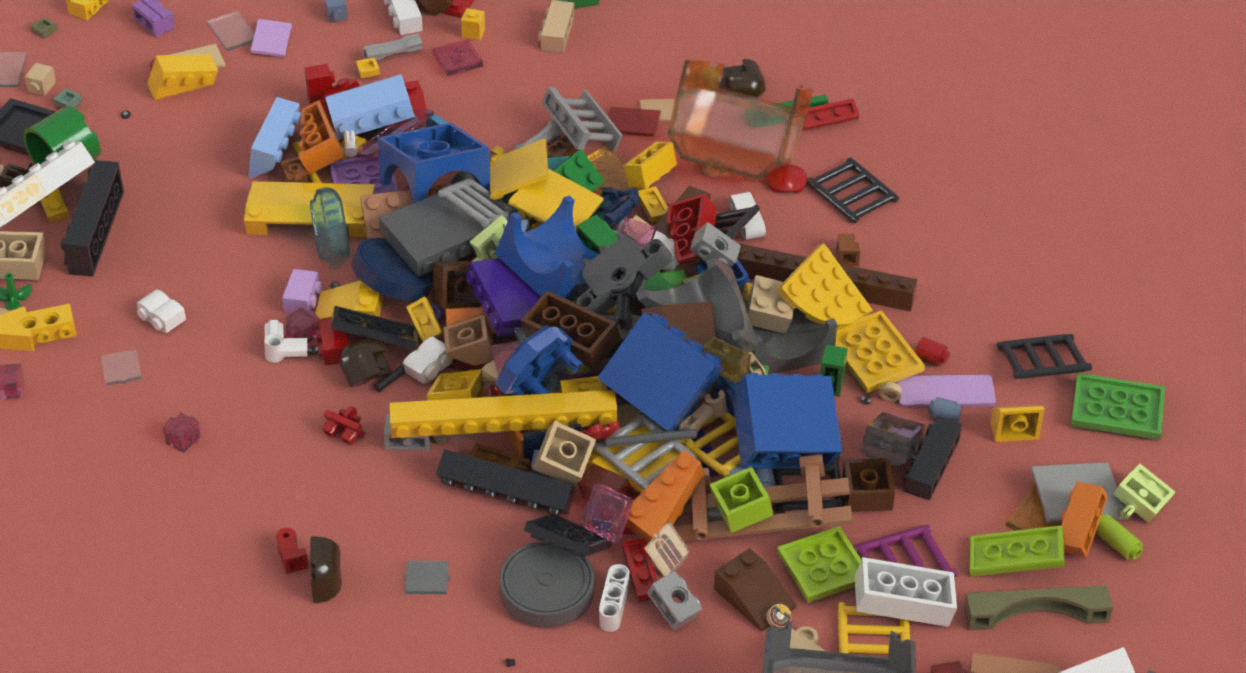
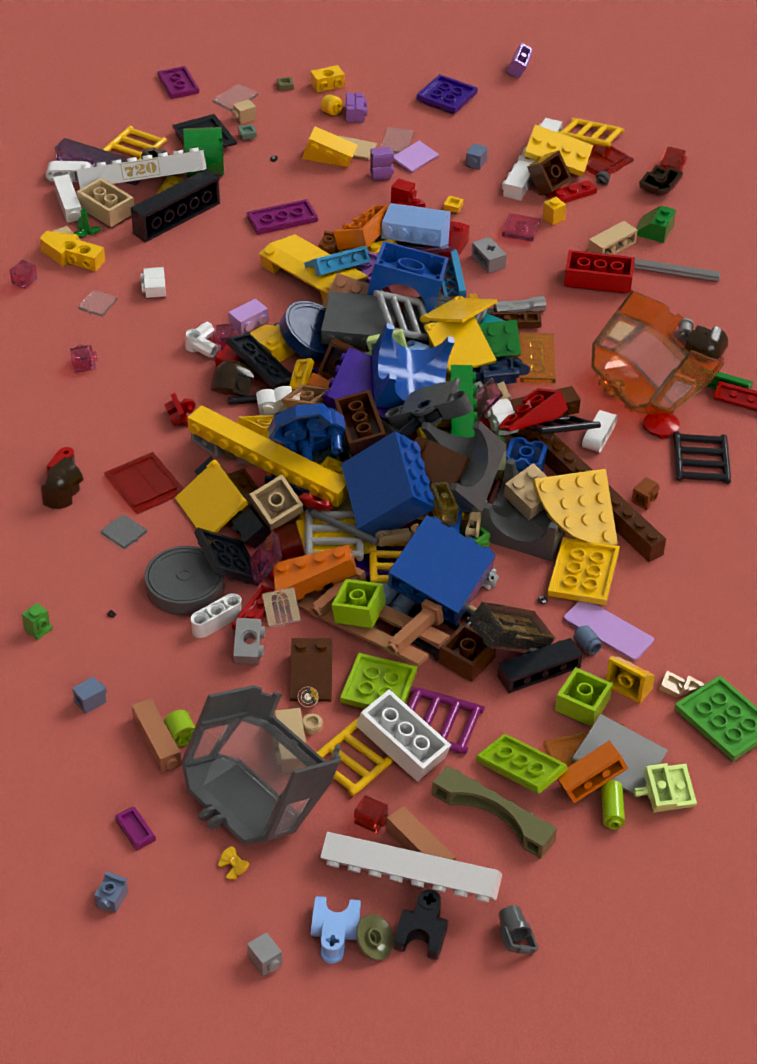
camera: 40 degrees right, 0 degrees up
(125, 26) = (331, 105): none -> yellow head
(208, 171) = (282, 216): none -> magenta tile
(256, 62) = (381, 163): none -> medium lavender brick
(273, 136) = (335, 211): light blue slope -> none
(330, 227) = (305, 279): clear light blue brick -> none
(341, 176) = (339, 261): none -> dark azure fence
(350, 144) = (377, 245): white piece -> none
(389, 518) = (144, 482): none -> clear red piece
(406, 44) = (496, 202): light grey axle -> none
(460, 101) = (489, 255): none -> light grey brick
(486, 492) = (211, 498): none -> yellow piece
(576, 129) = (538, 305): light grey fence -> none
(582, 62) = (599, 271): none -> red brick
(635, 26) = (676, 270): none -> light grey axle
(635, 121) = (588, 326): clear red piece -> none
(650, 165) = (563, 359): yellow brick -> none
(652, 203) = (538, 380): yellow plate -> none
(711, 243) = (528, 420): light grey brick -> none
(834, 365) = (531, 563): green brick -> none
(890, 391) = (562, 603): tan tile -> none
(932, 351) = (625, 595): red brick -> none
(1001, 461) = (583, 697): none -> lime brick
(1040, 371) = (710, 662): black bar -> none
(1053, 403) = (678, 686): none -> tan slope

